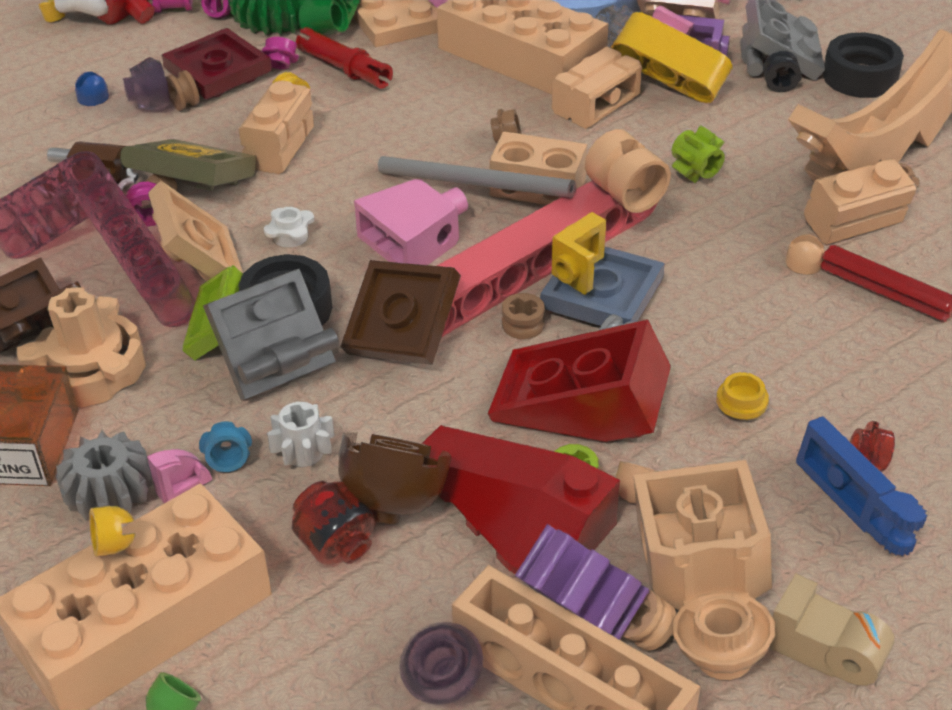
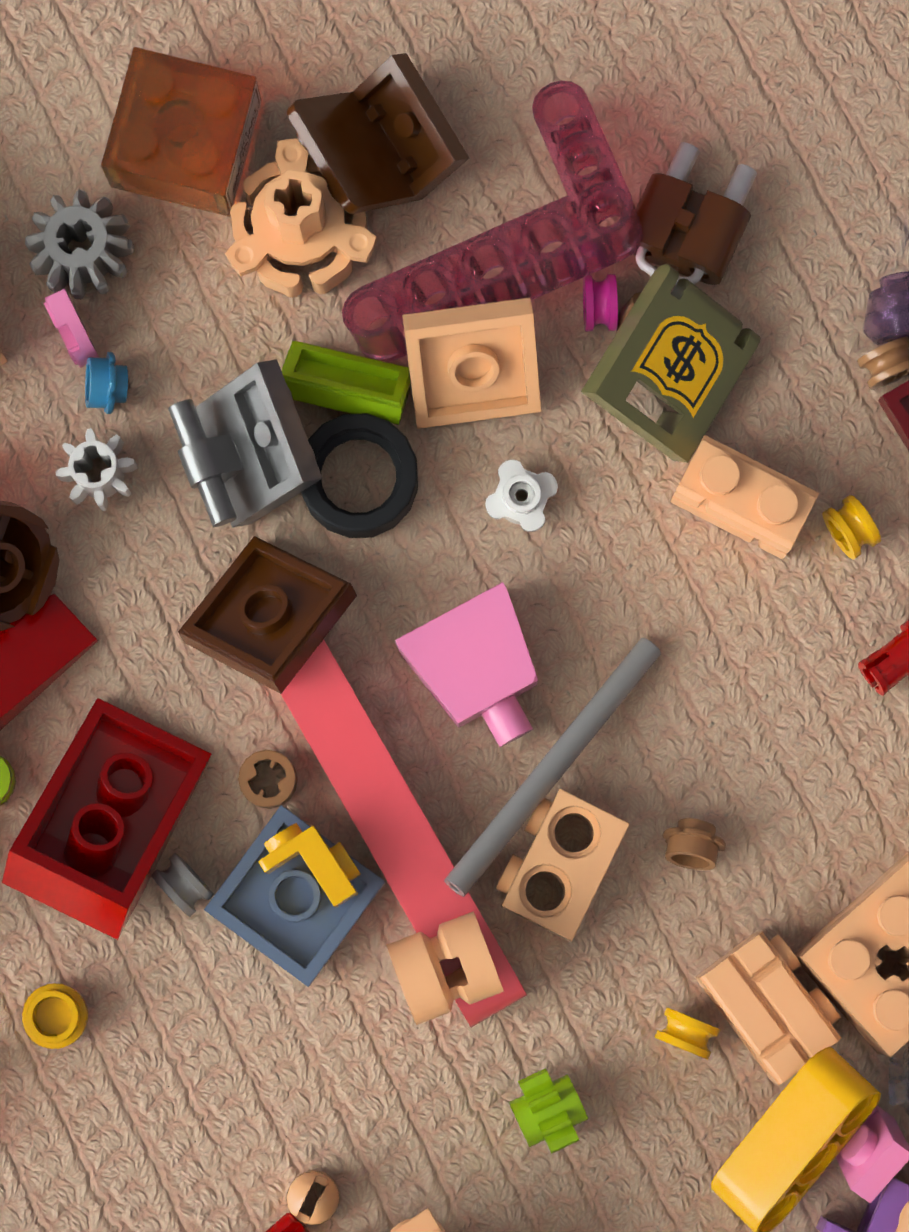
camera: 100 degrees right, 40 degrees up
(625, 113) = (687, 1033): none -> yellow bush

